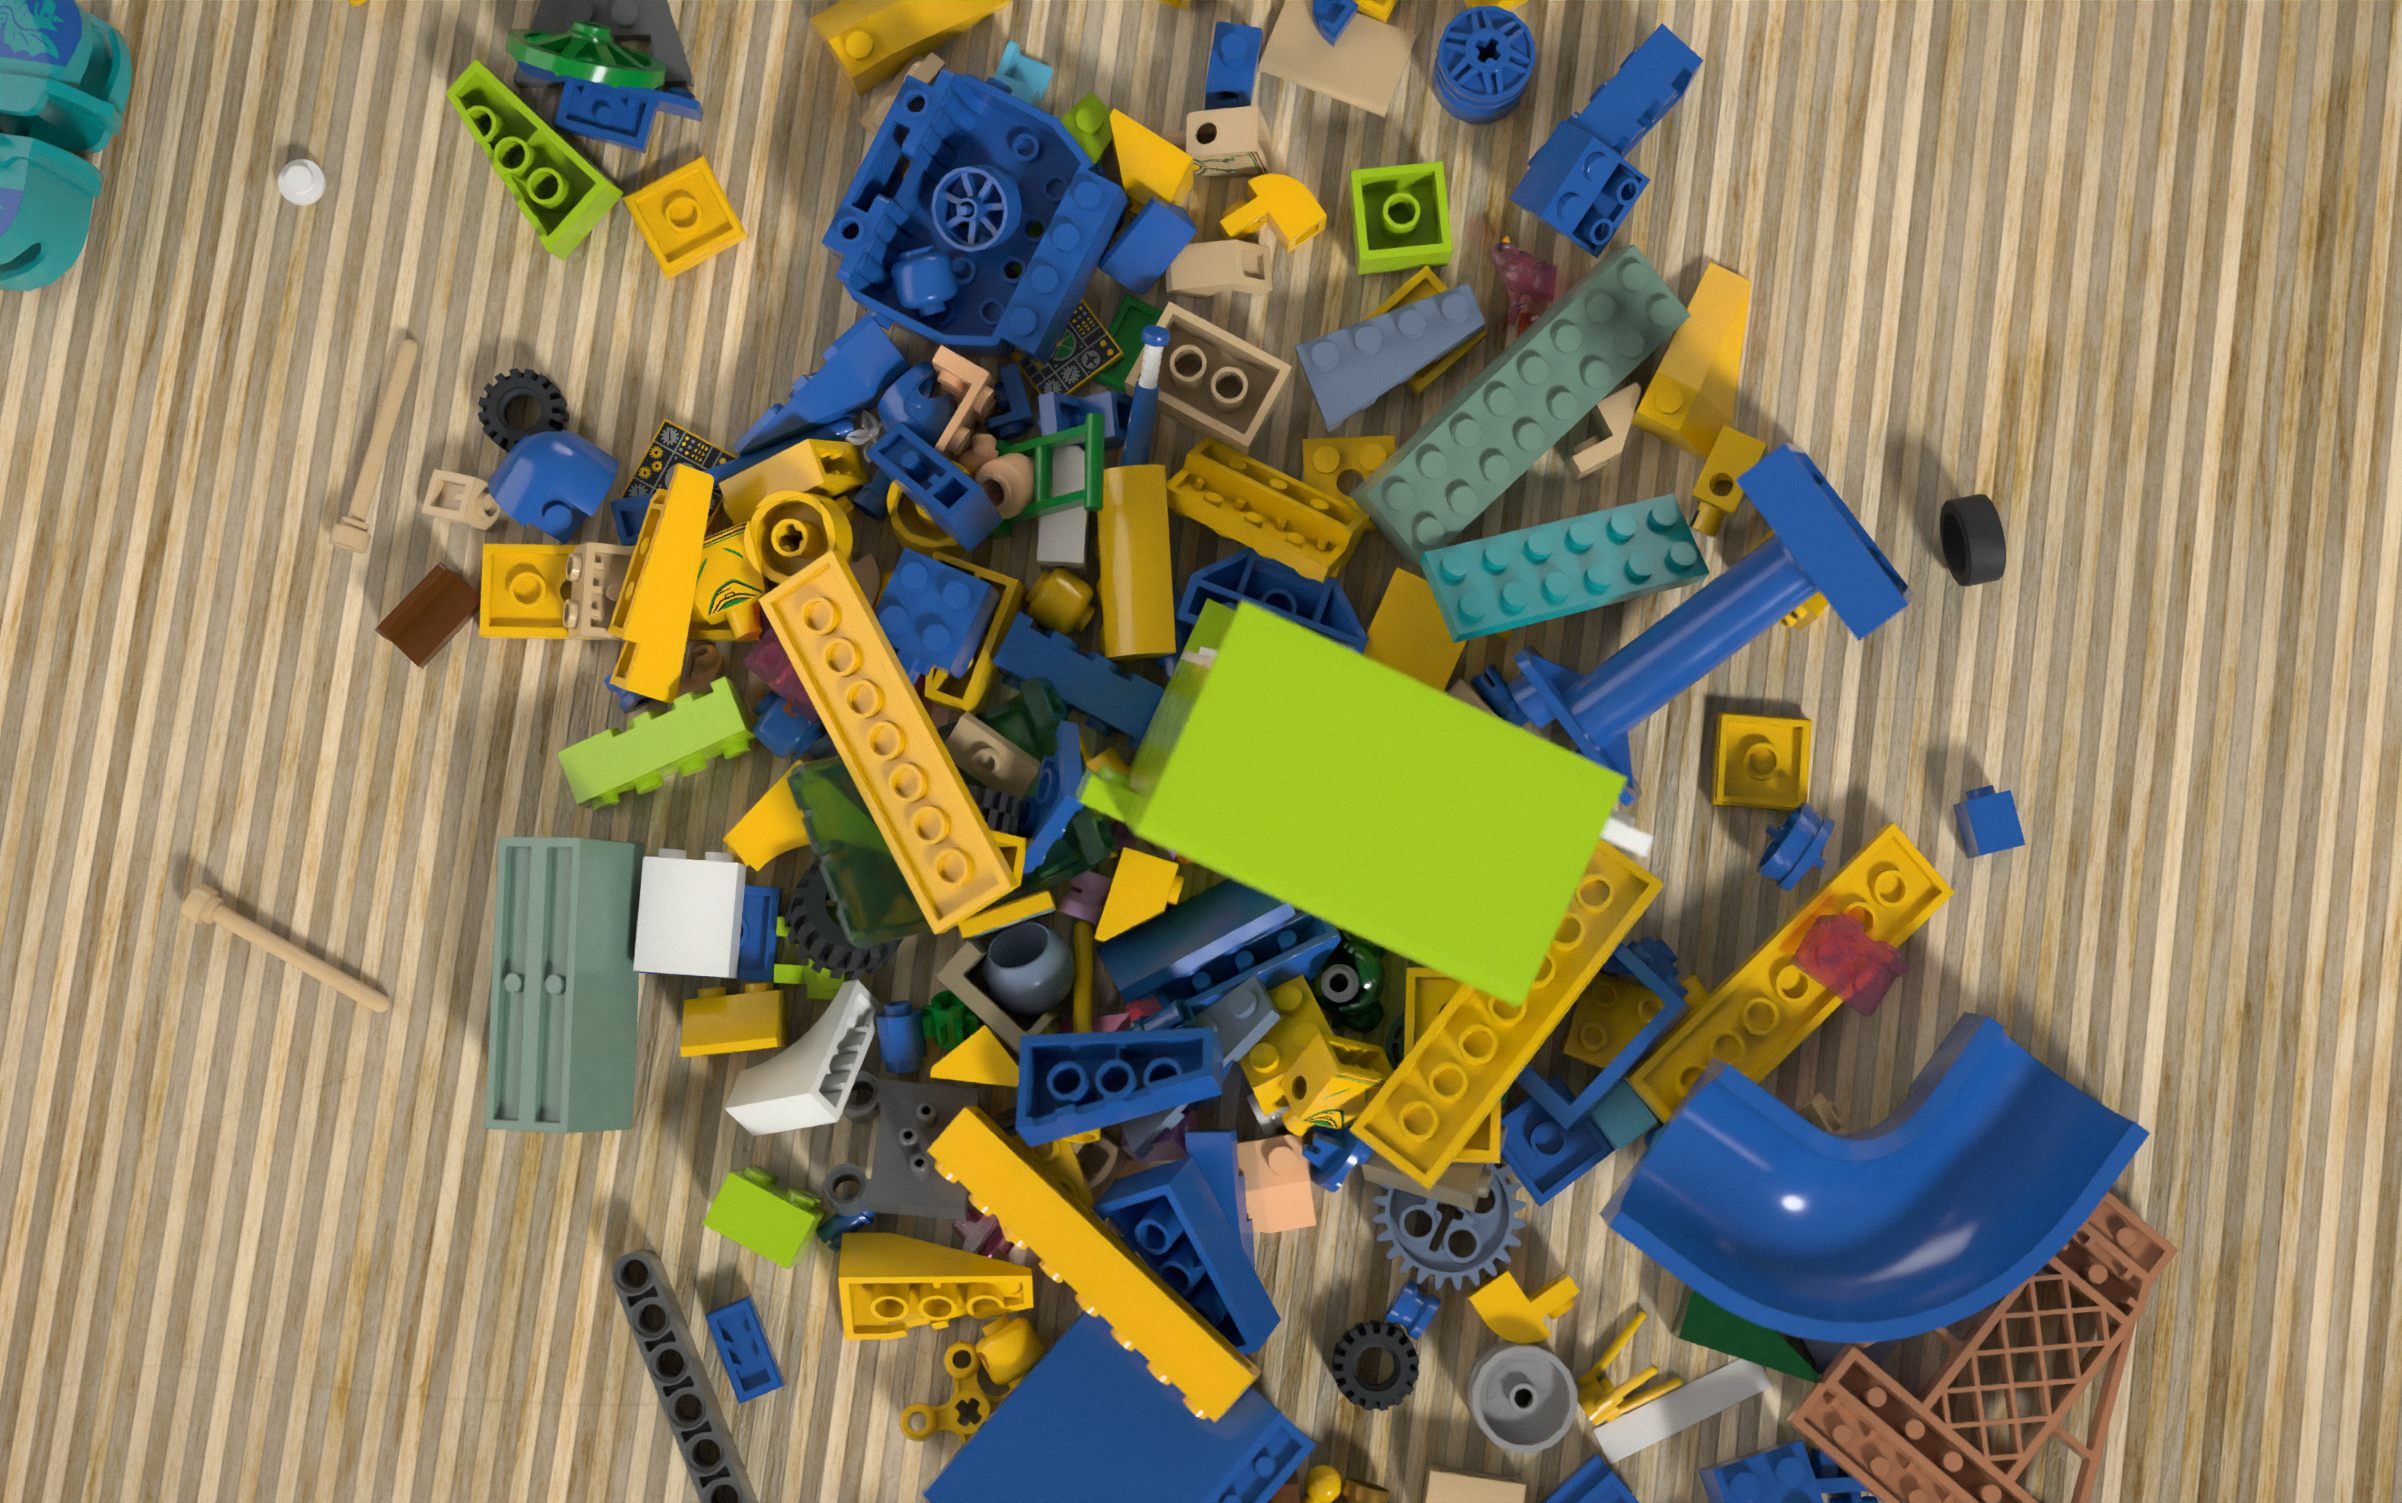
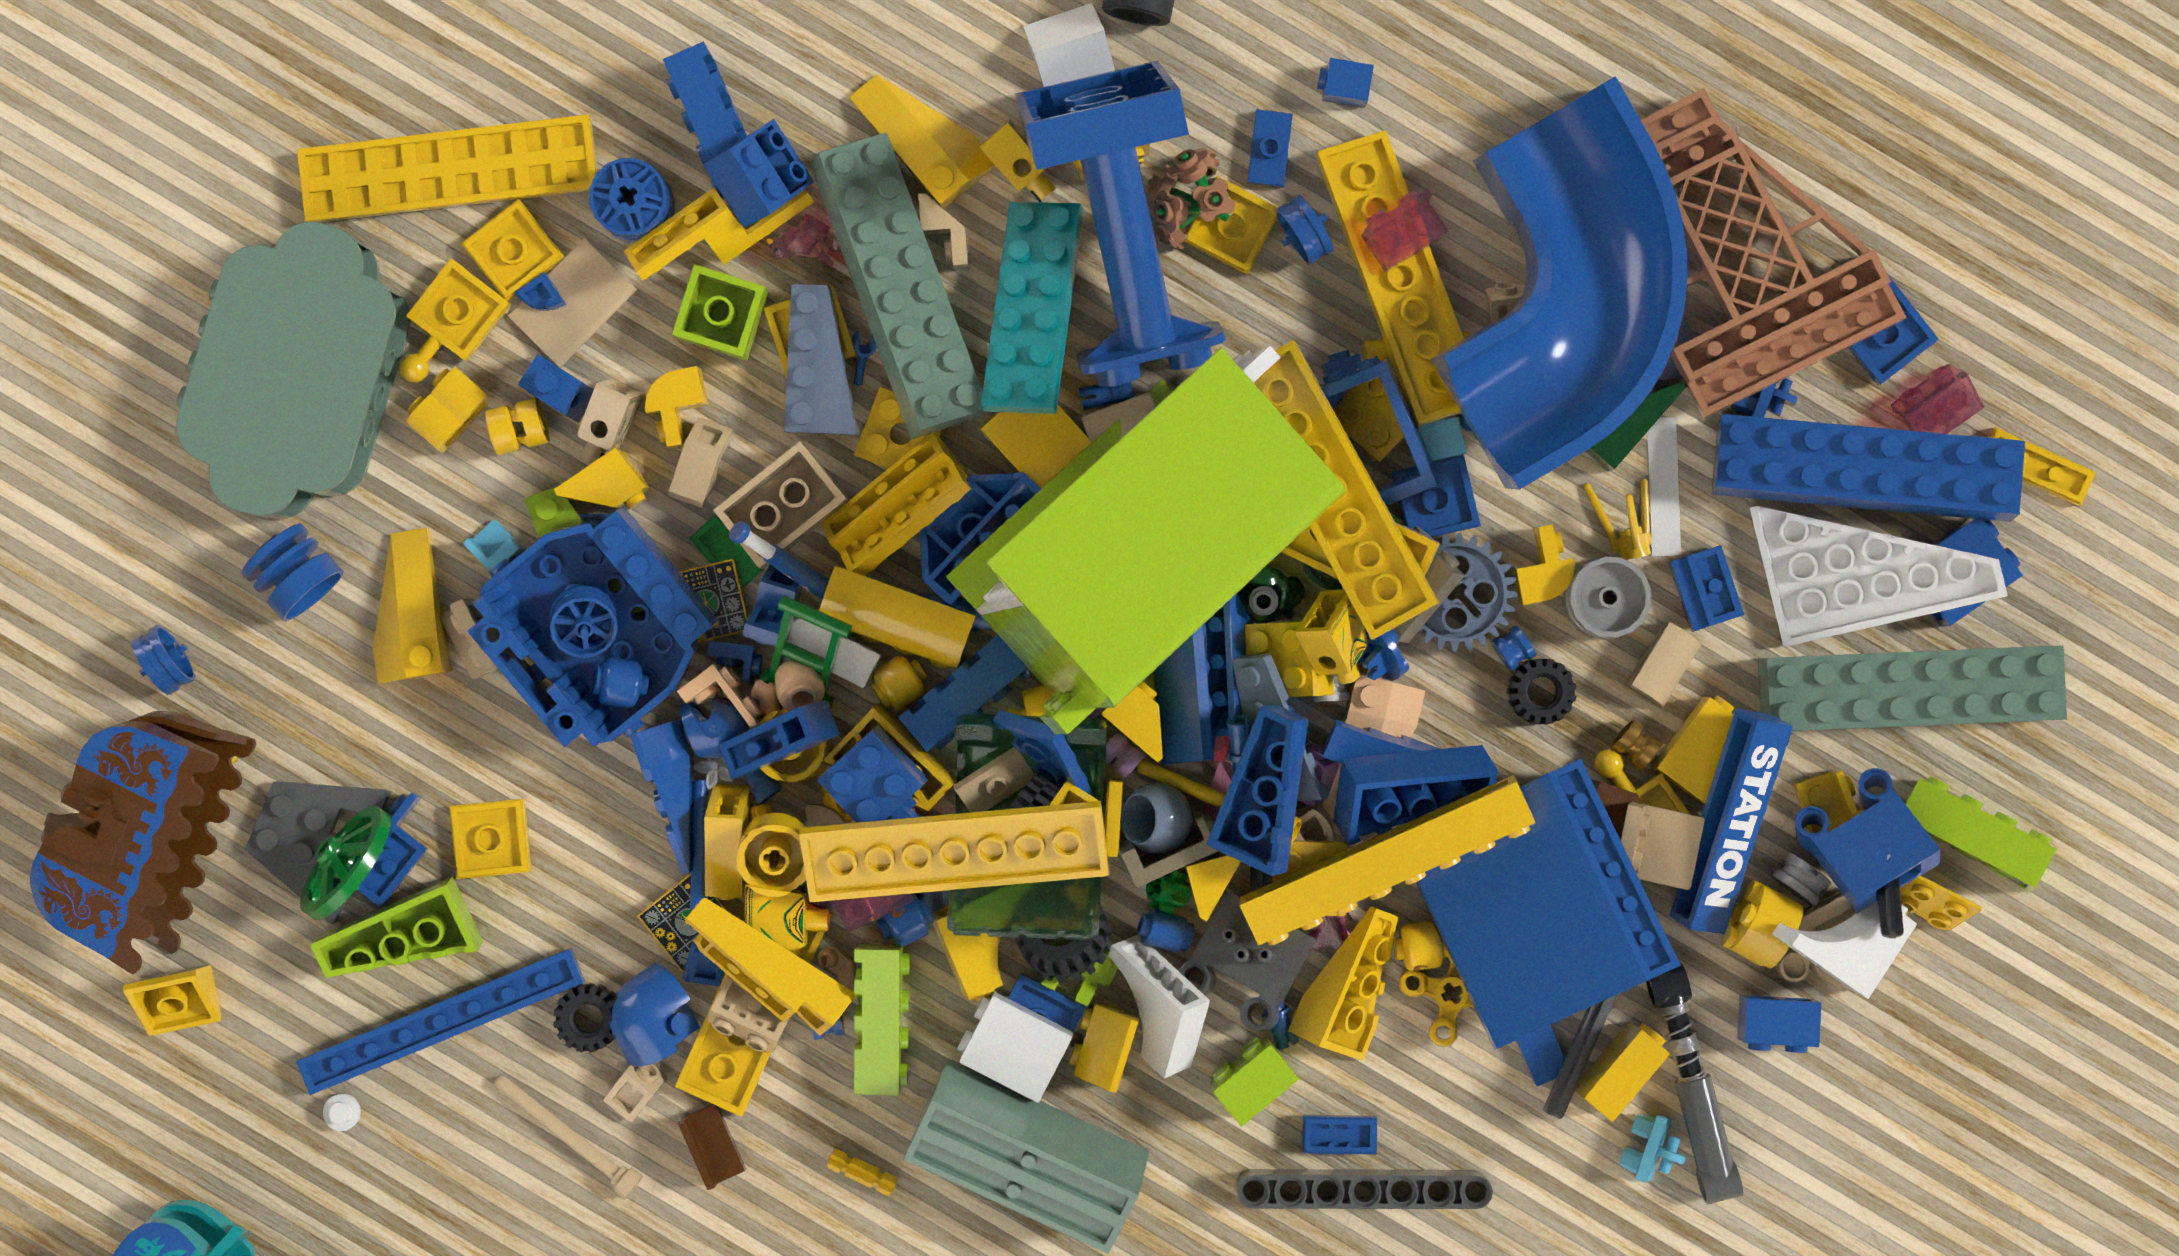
camera: 65 degrees left, 5 degrees up
(451, 249) = (440, 1021): none -> blue plate
(471, 803) = (862, 1172): none -> yellow axle
(1148, 245) = (663, 506): blue slope -> none
(1165, 42) = (505, 431): none -> yellow wheel
(1424, 400) = (863, 353): none -> blue hand
(1499, 168) = (708, 220): none -> yellow bracket
(1782, 714) = (1206, 201): none -> nougat plant
(1870, 767) = (1269, 148): none -> blue plate
(1883, 486) = (1069, 46): none -> white slope

